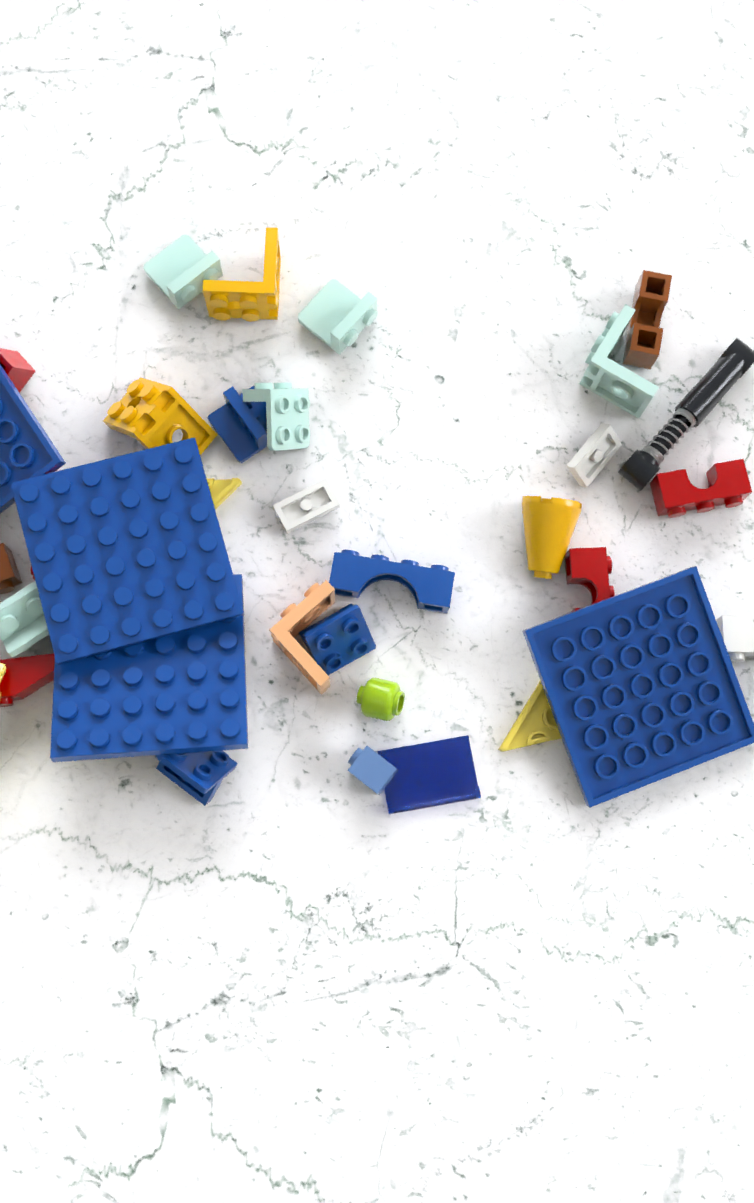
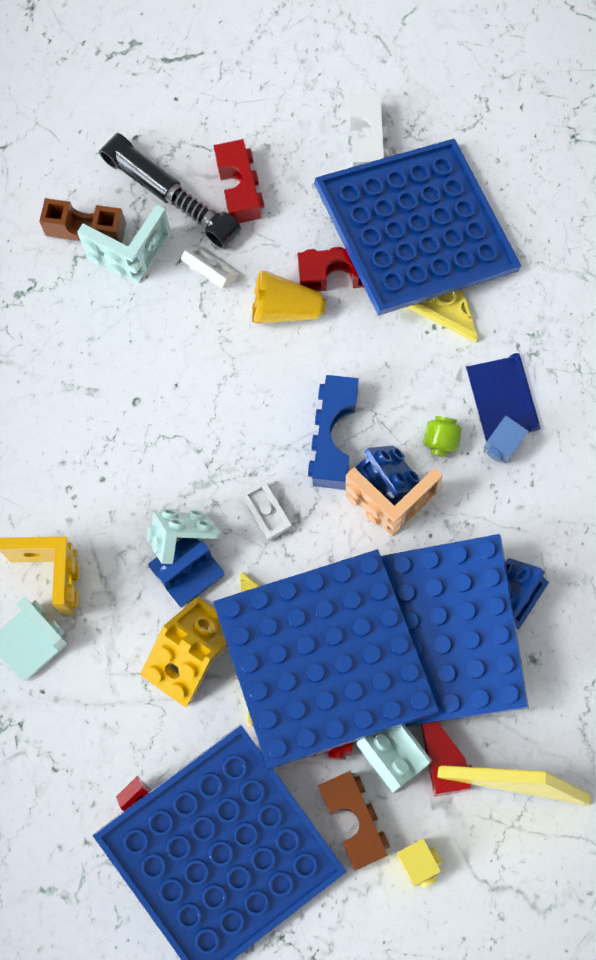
camera: 80 degrees left, 5 degrees down
(338, 315) = (76, 490): light aqua bracket -> none

